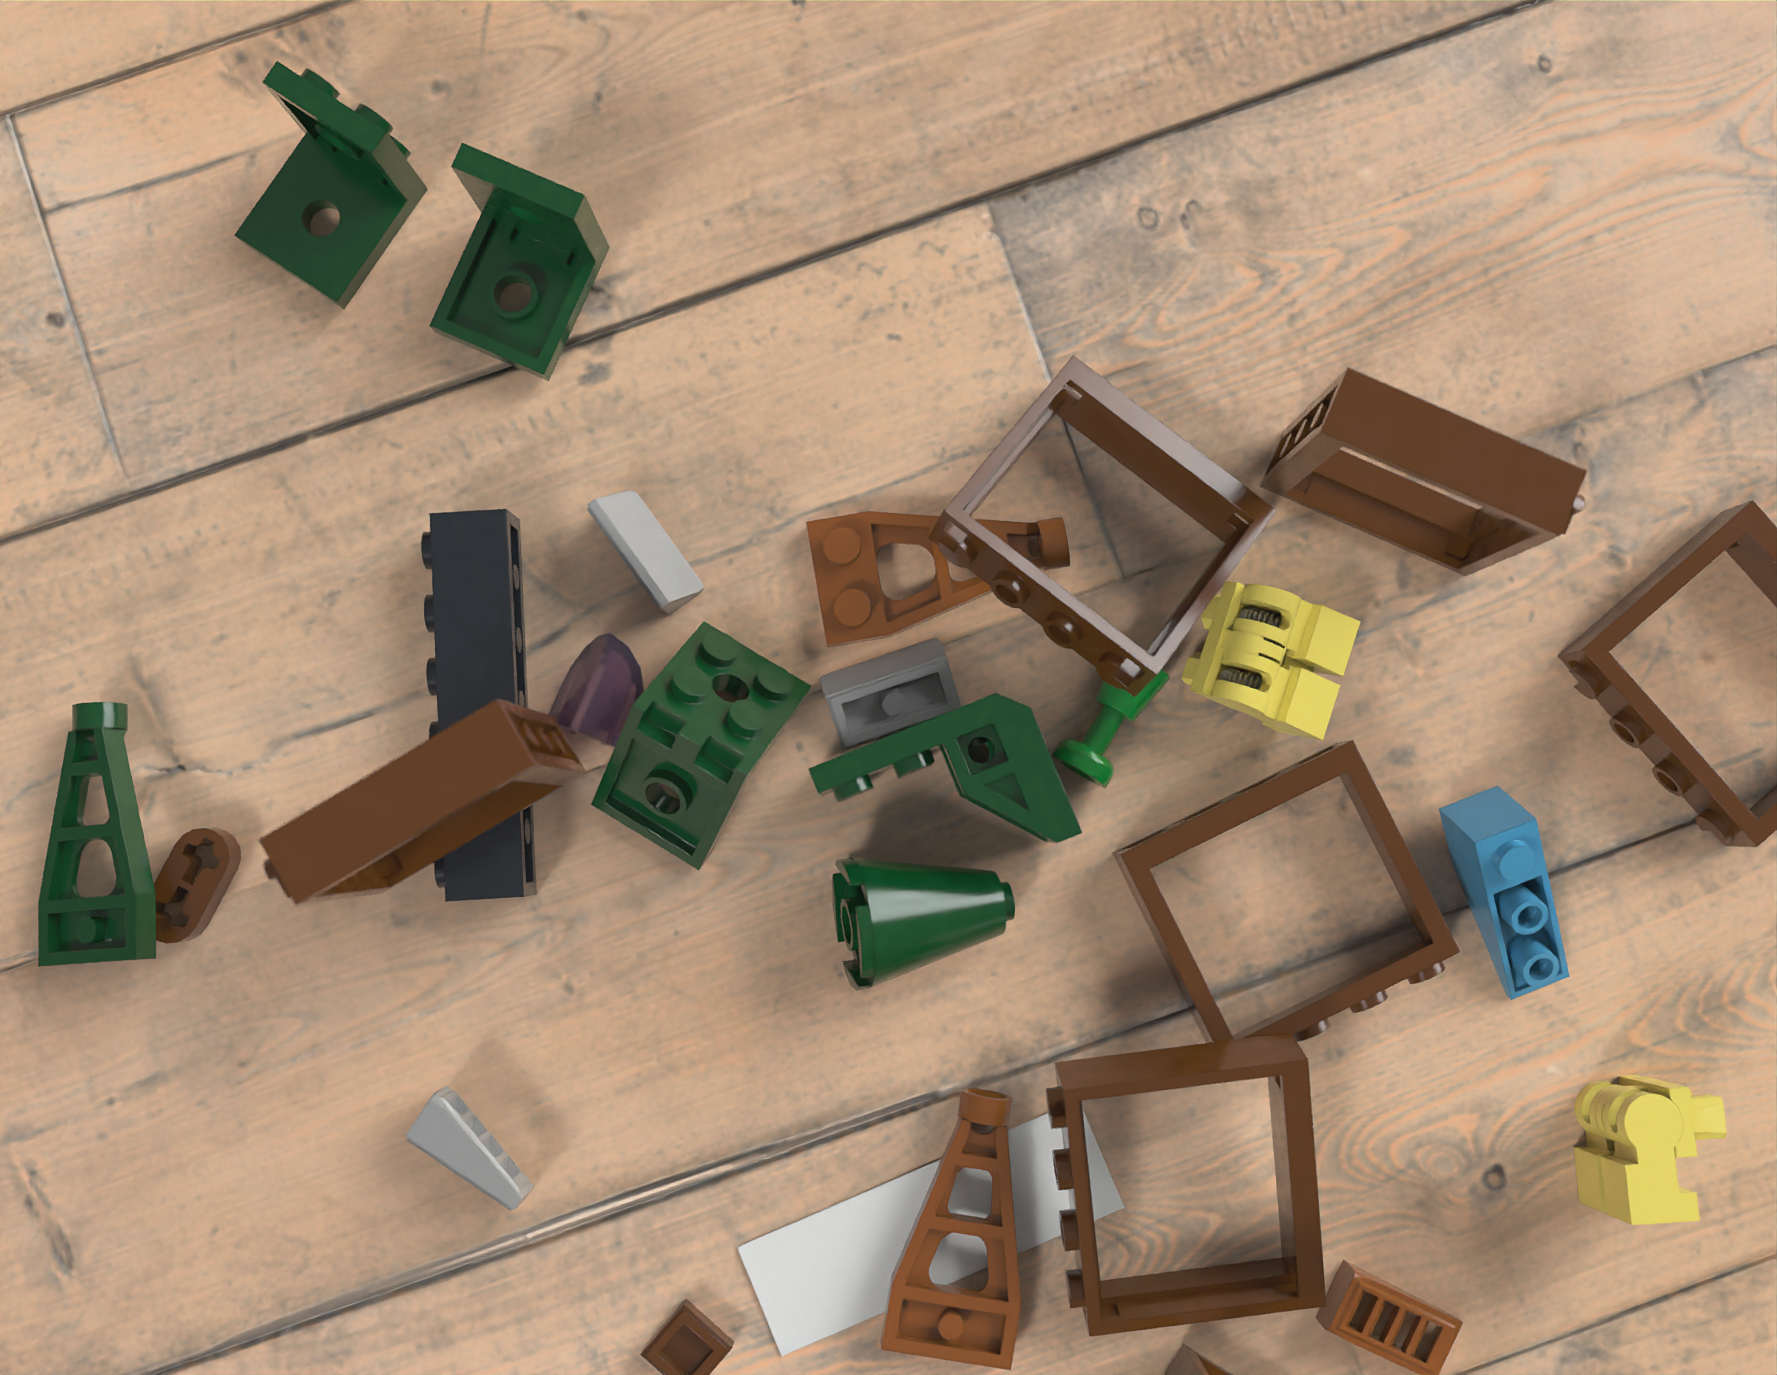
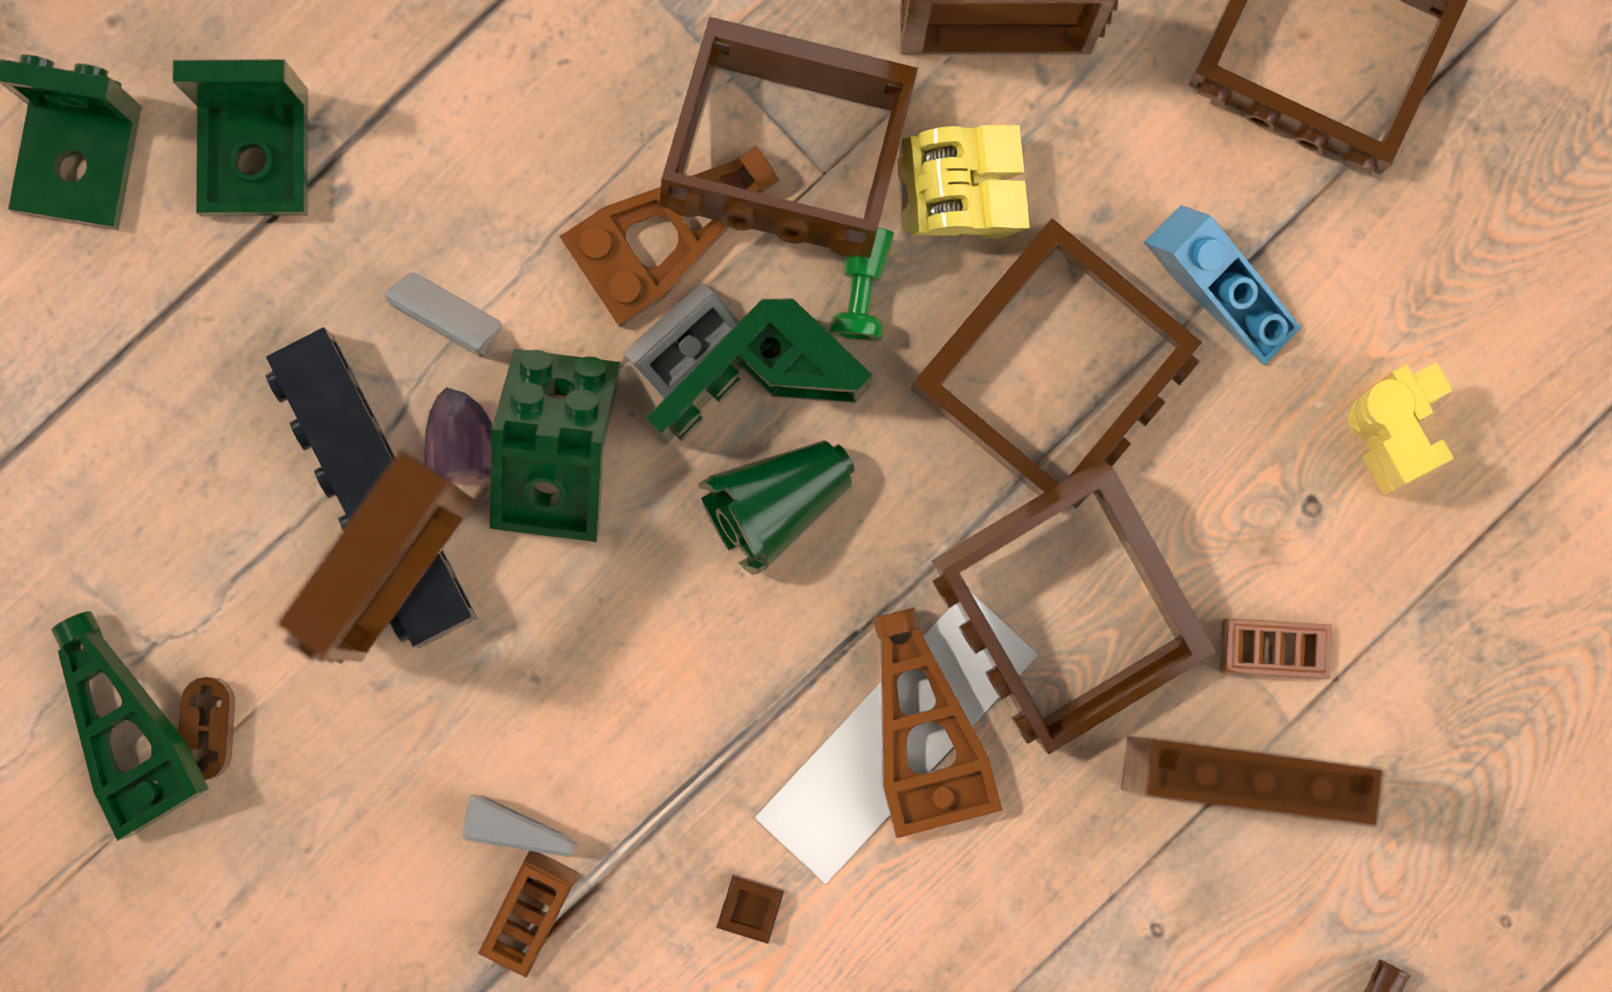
camera: 25 degrees left, 0 degrees up
(476, 1217) = (548, 872): none -> dark orange slope

